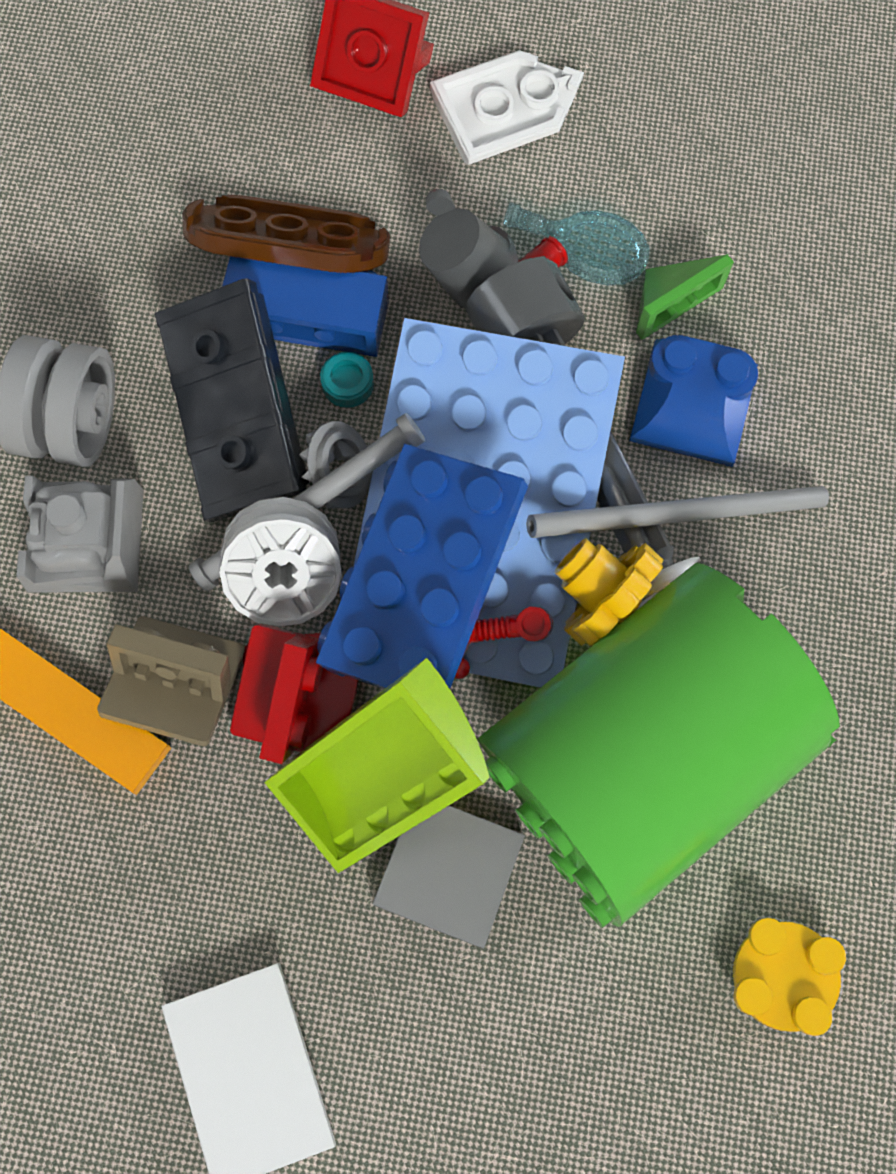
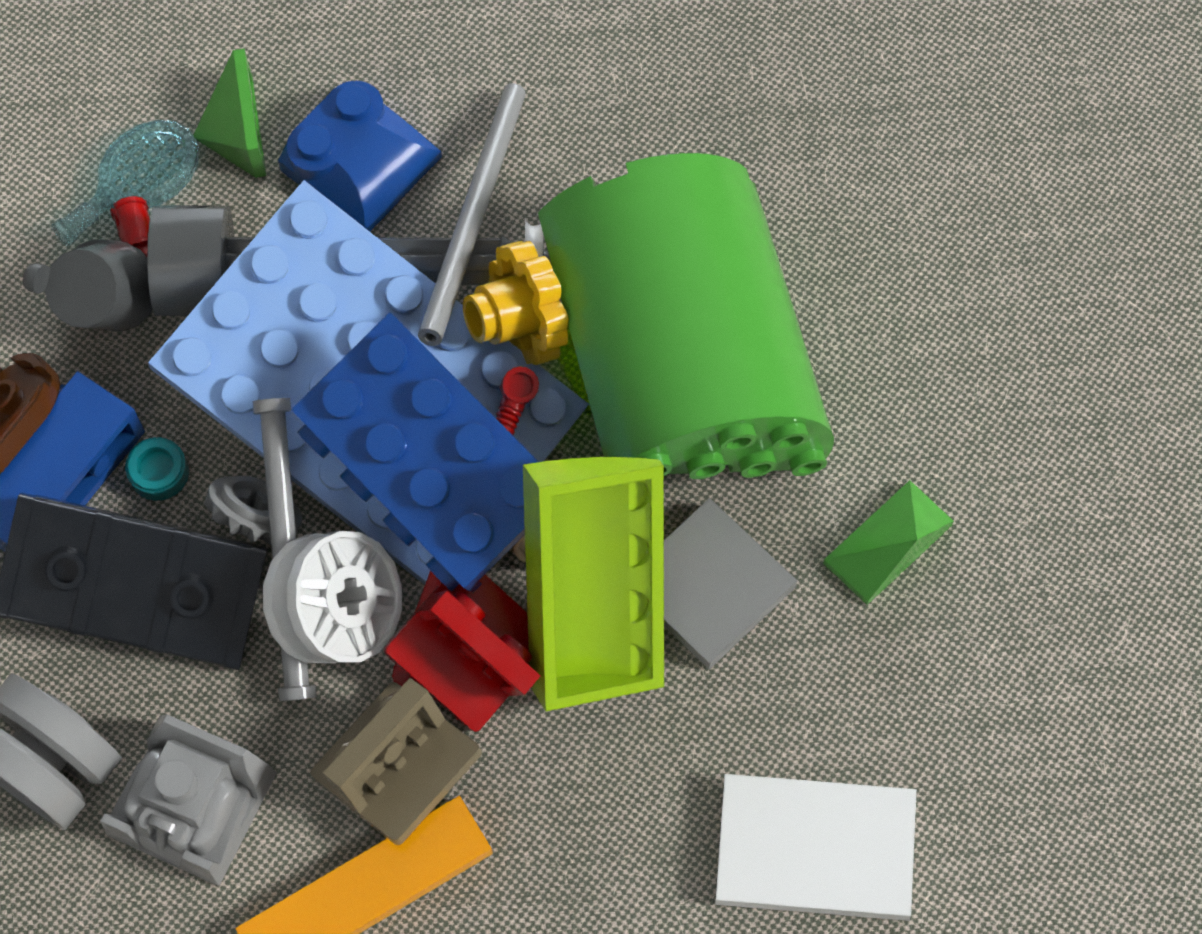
camera: 60 degrees left, 5 degrees down
(563, 1016) = (888, 542): none -> bright green slope
(788, 976) = (940, 331): yellow piece -> none

